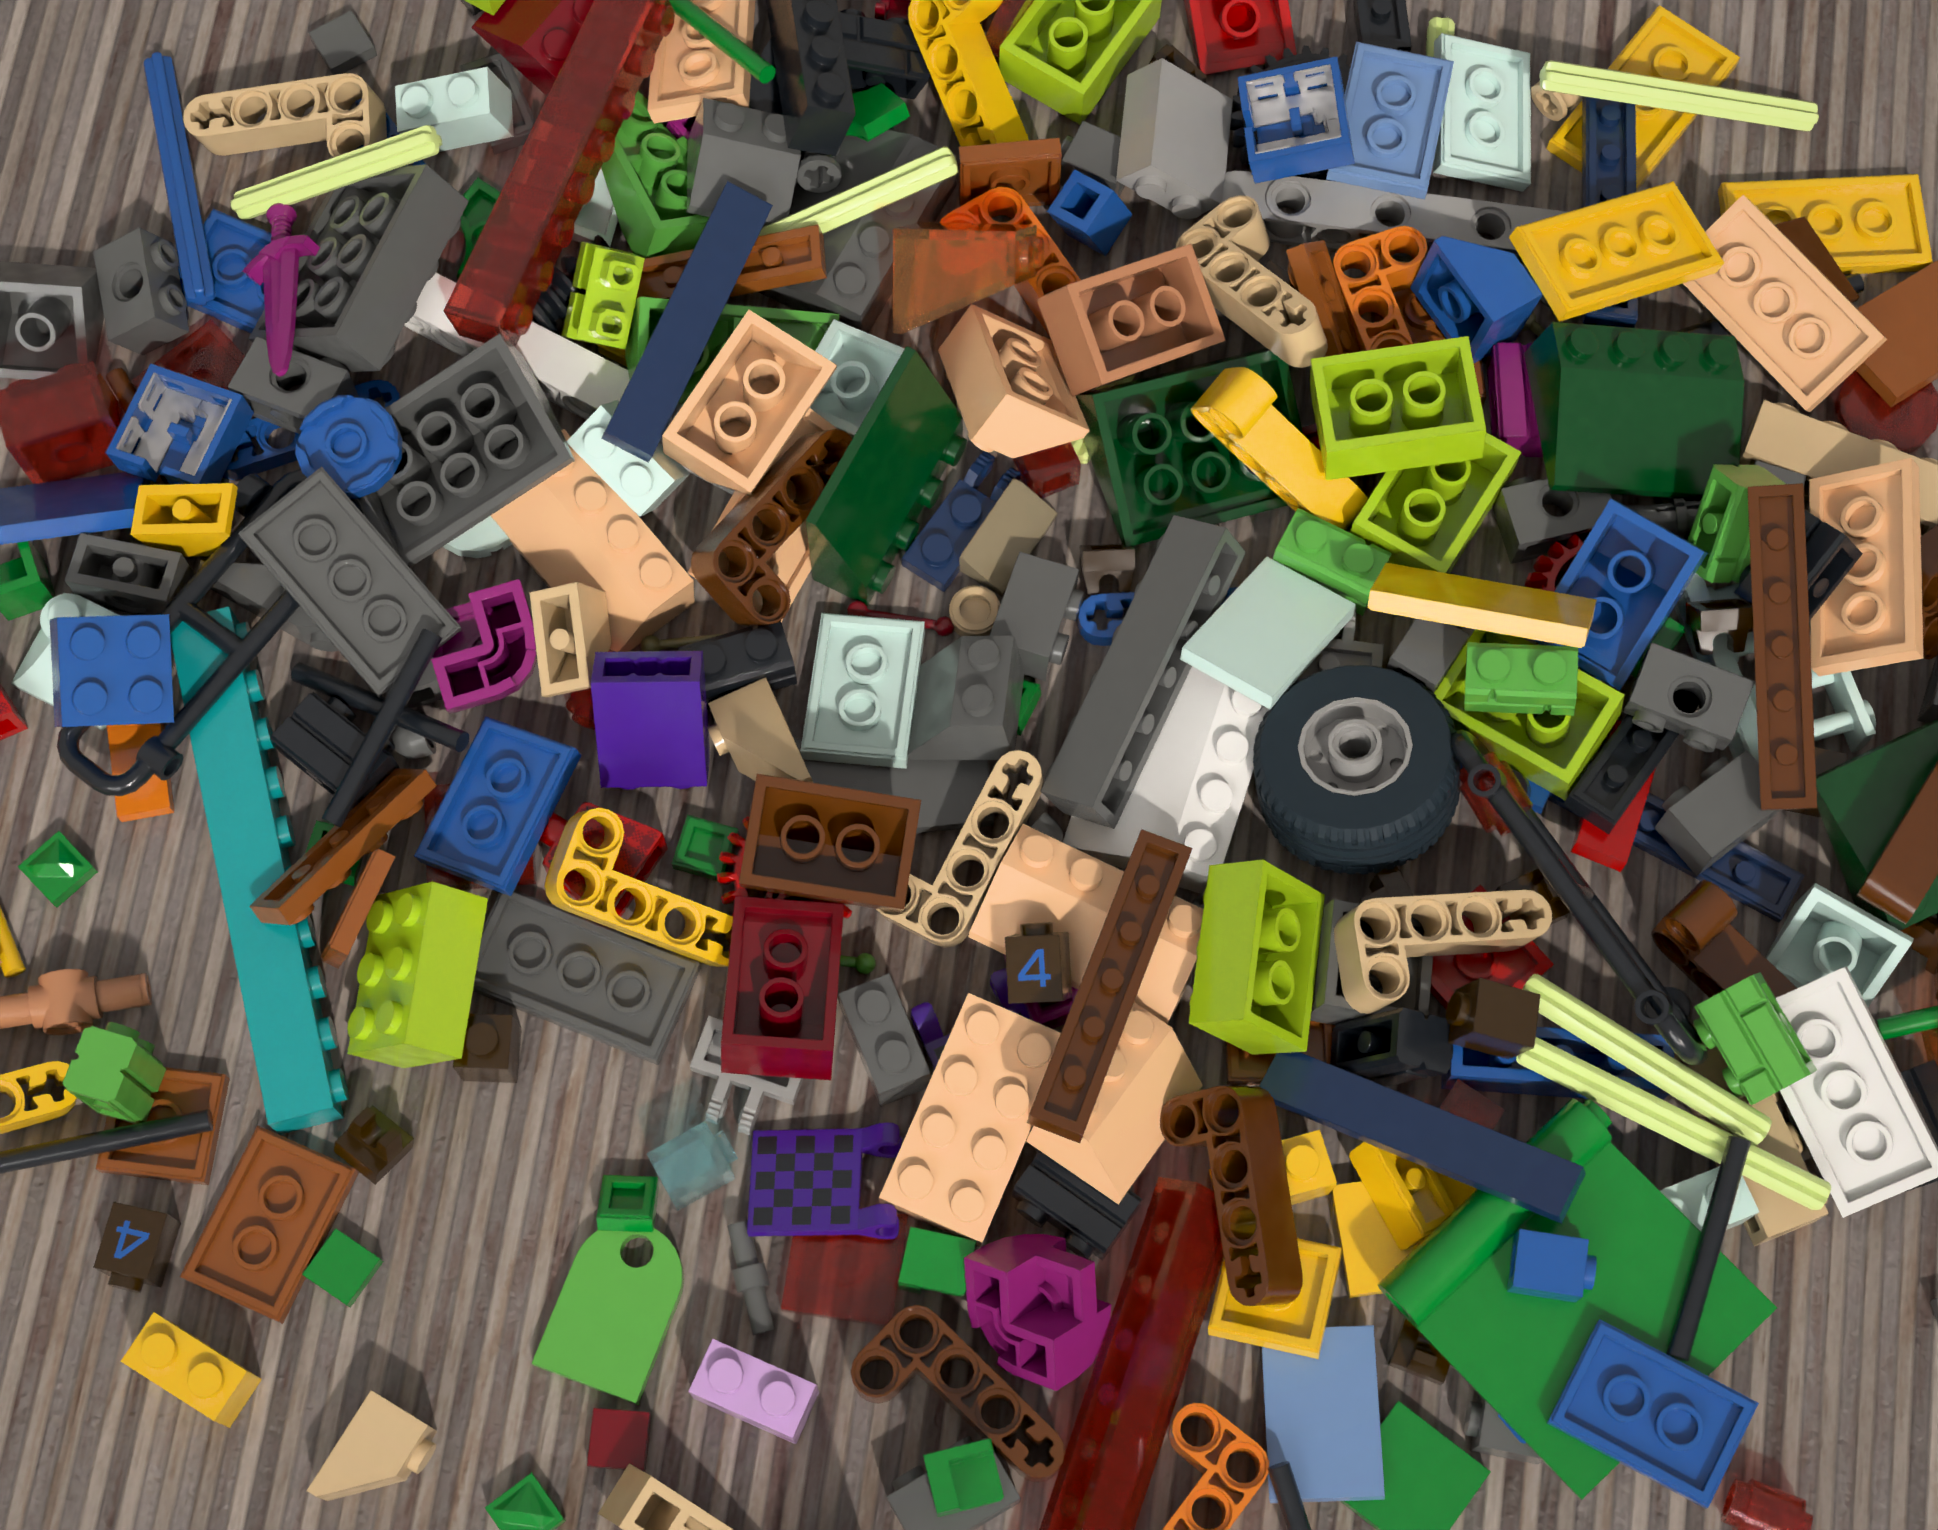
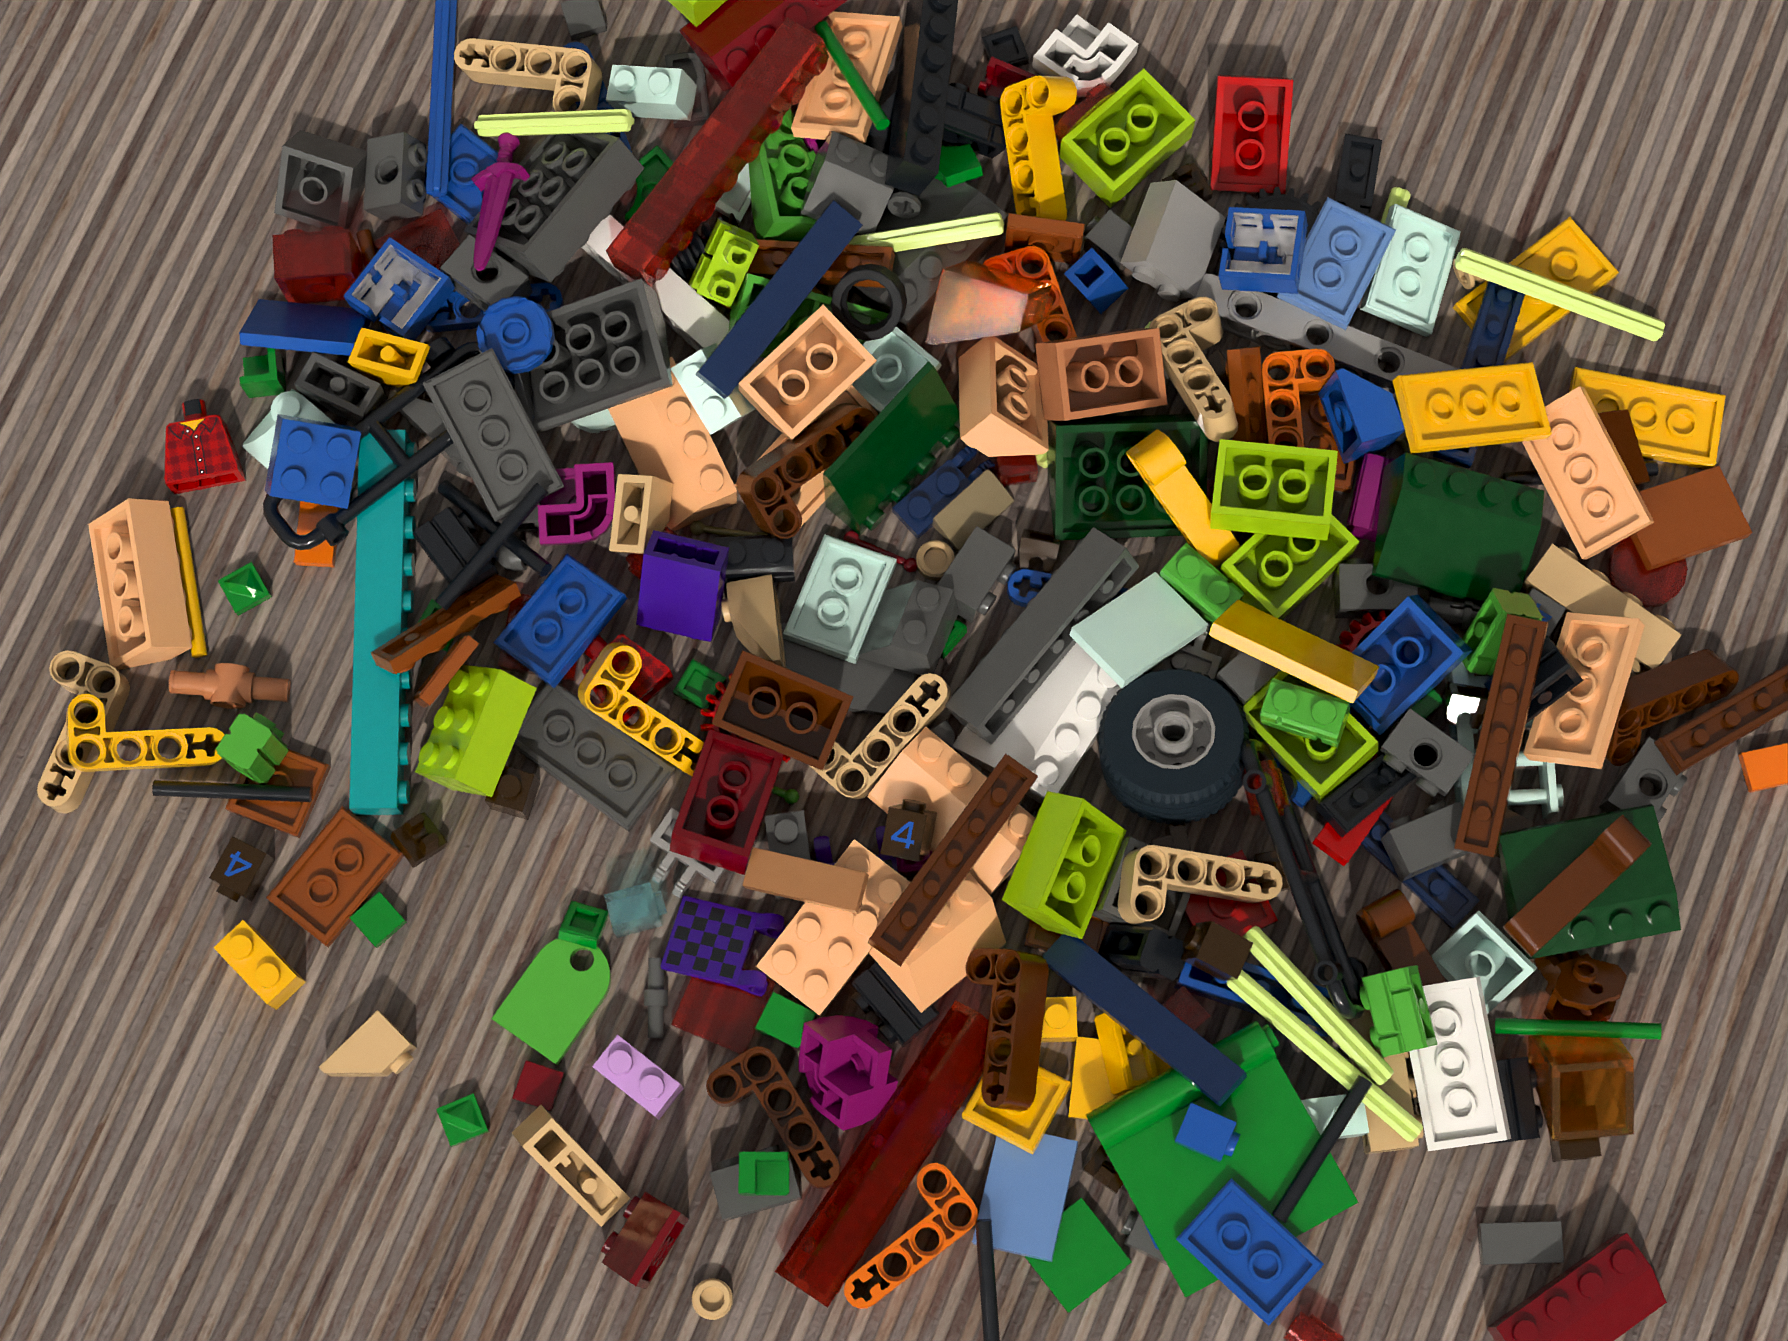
camera: 15 degrees right, 5 degrees up
(833, 270) = (889, 281): none -> black tyre
(918, 1063) = (805, 880): none -> medium nougat tile

